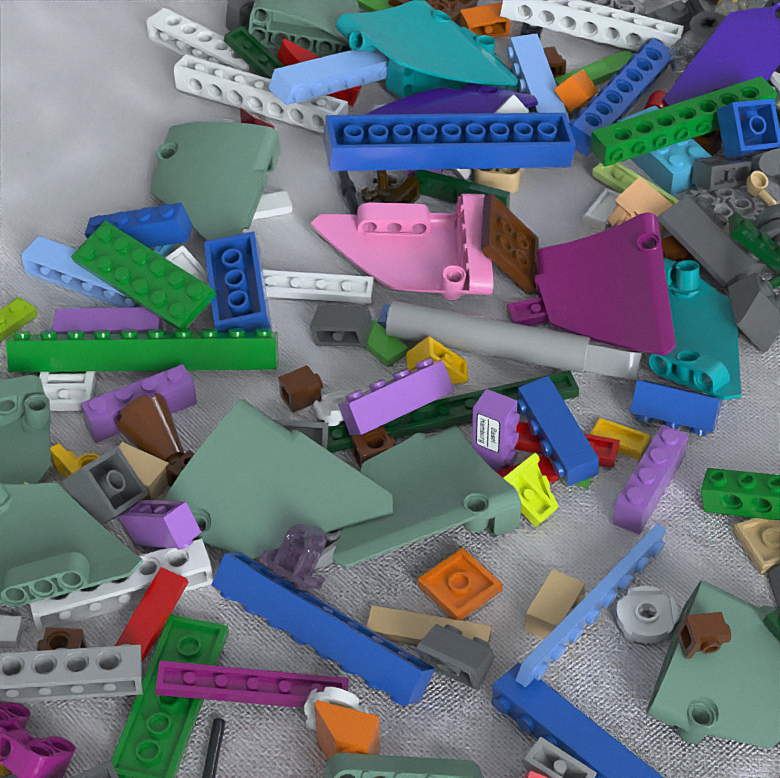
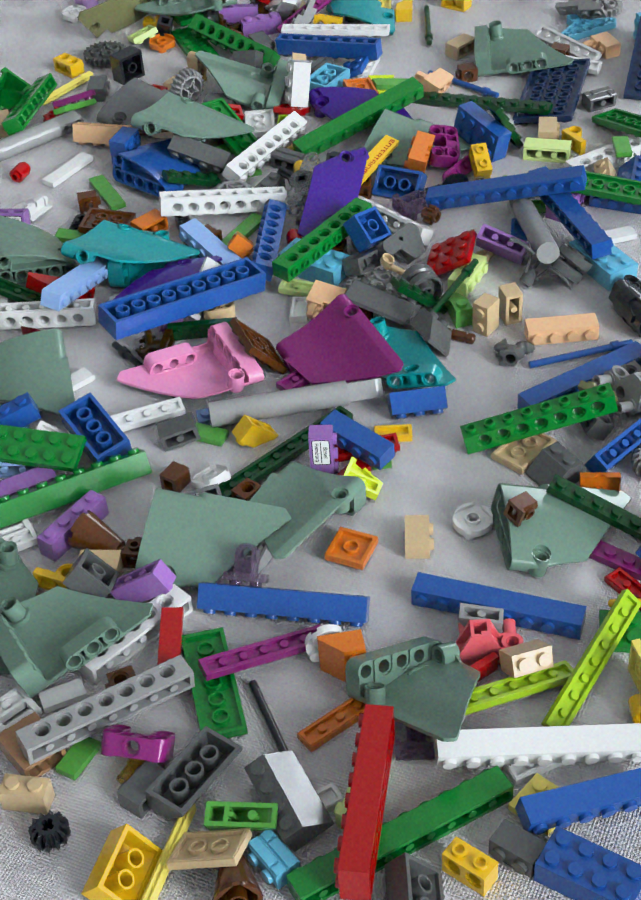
camera: 25 degrees left, 5 degrees down
(395, 397) = (246, 456): medium lavender brick -> none
(412, 626) = (351, 579): tan tile -> none
(456, 655) = (379, 584): dark grey slope -> none
(589, 608) = (442, 525): medium blue plate -> none
(650, 479) = (428, 447): medium lavender brick -> none

